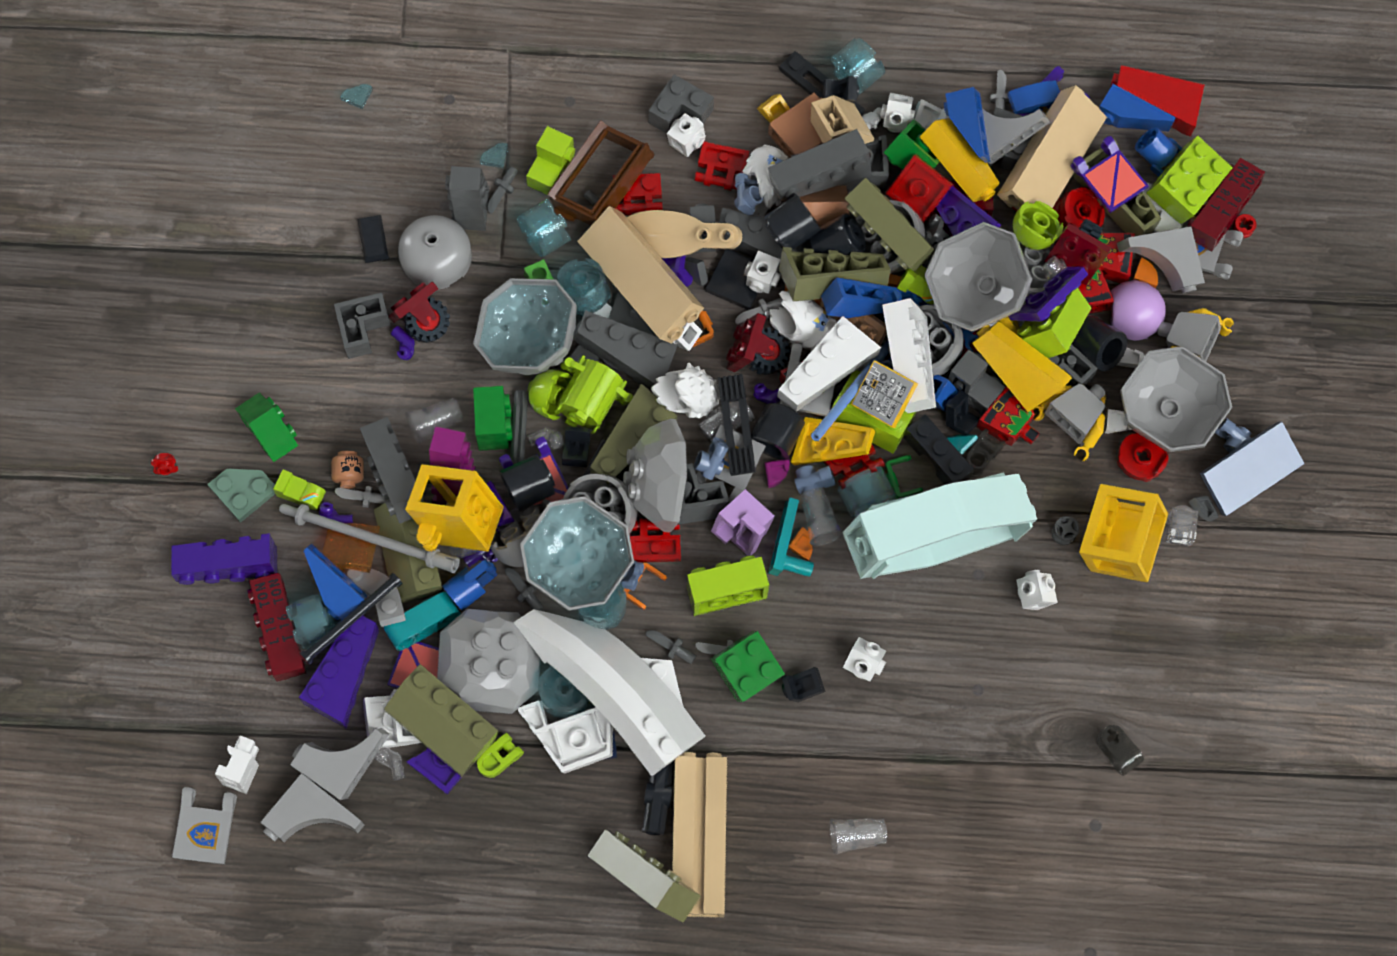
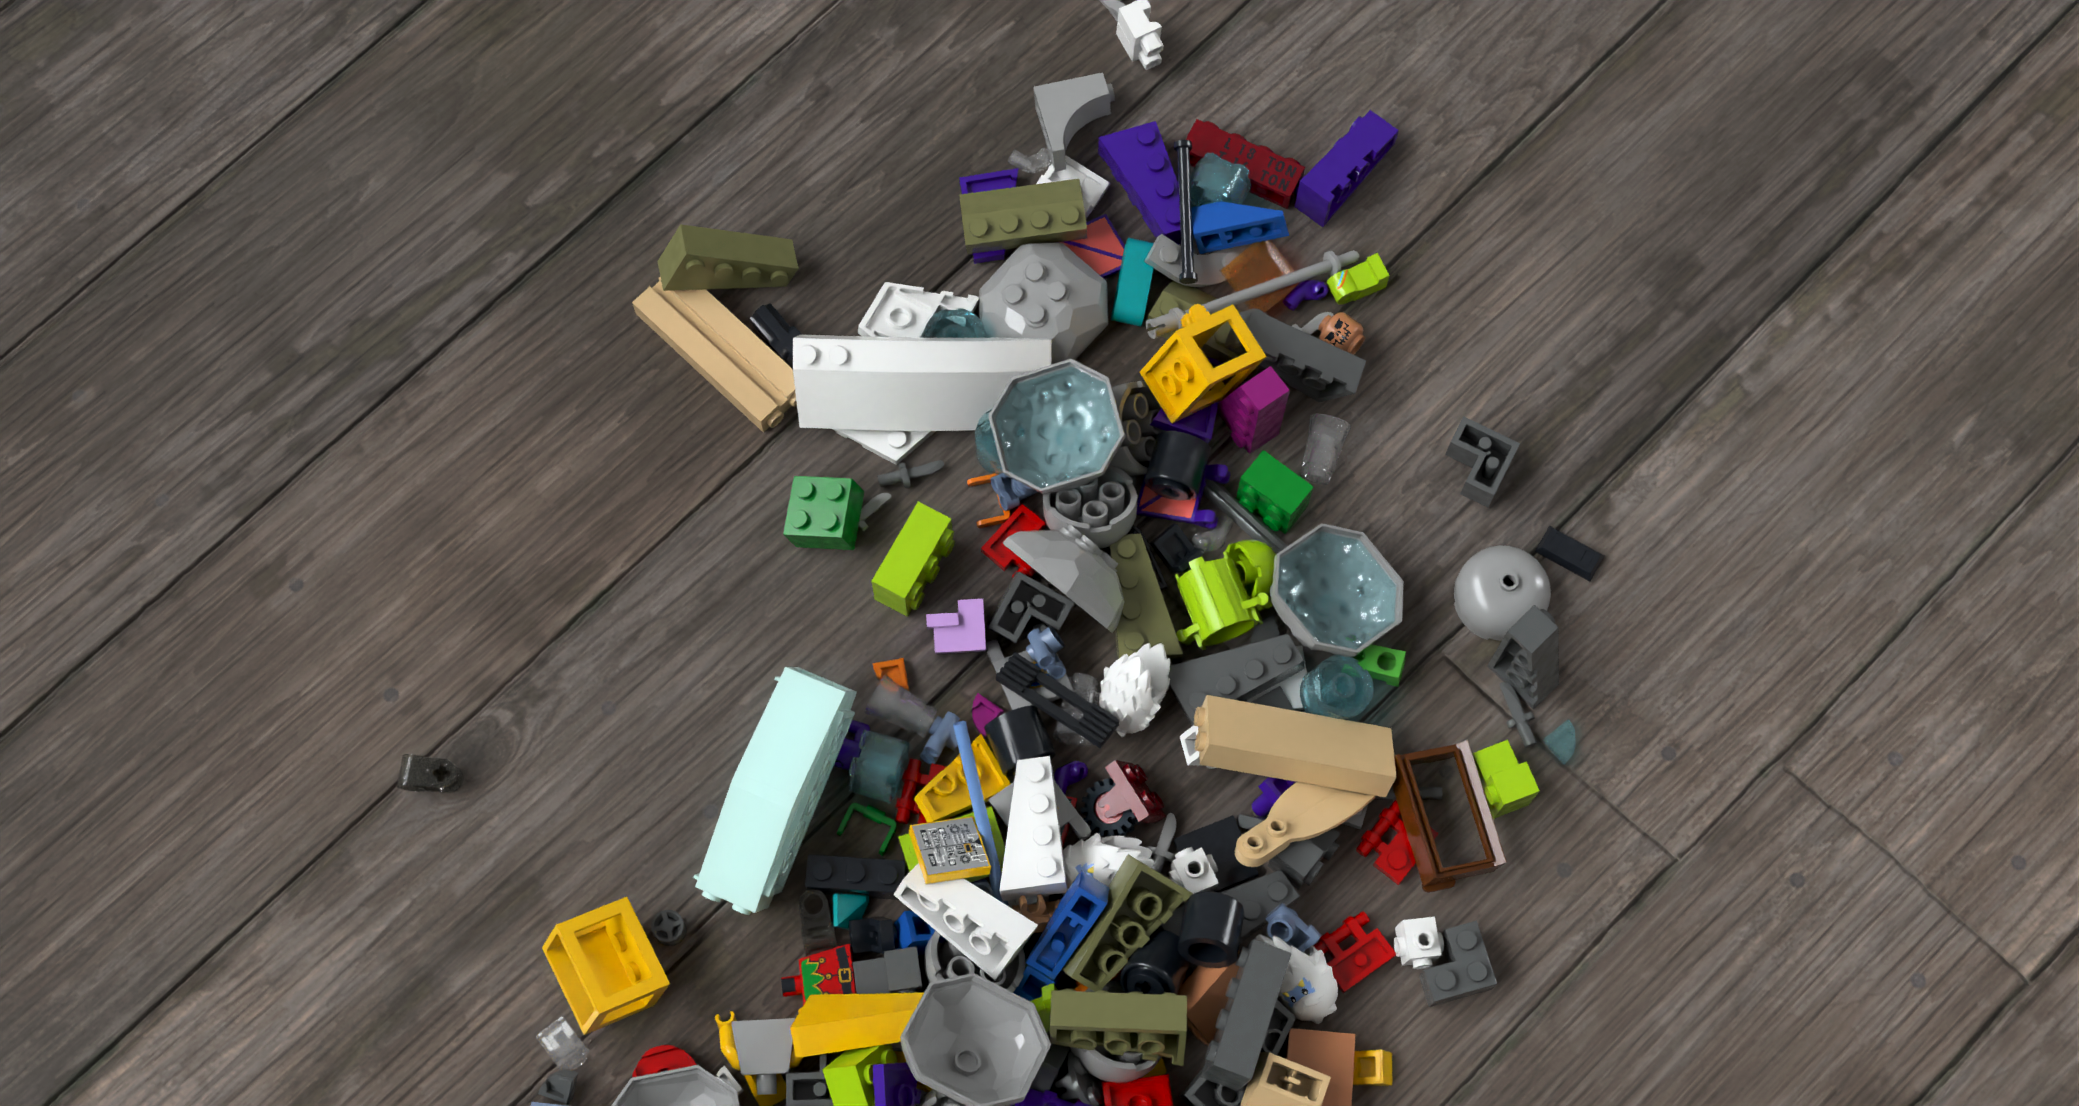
camera: 135 degrees right, 0 degrees up
(164, 464) = (1489, 190): red plate -> none
(242, 490) = (1405, 237): sand green plate -> none
(266, 424) = (1448, 293): green brick -> none
(304, 806) = (1056, 60): light grey arch -> none
(357, 95) = (1748, 666): clear light blue tile -> none
(406, 345) = (1425, 491): dark purple arm -> none
(424, 316) = (1443, 521): plate -> none
(464, 586) = (1129, 342): blue piece -> none
(491, 763) = (950, 238): lime plate -> none
(543, 228) = (1433, 706): clear light blue brick -> none
(707, 324) = (1202, 787): orange piece -> none
(779, 559) = (895, 636): teal piece -> none
(803, 685) = (762, 549): black bracket -> none
(856, 834) = (588, 475): clear plant -> none
(865, 659) = (729, 623): white brick -> none
(1036, 590) = (638, 839): white brick -> none

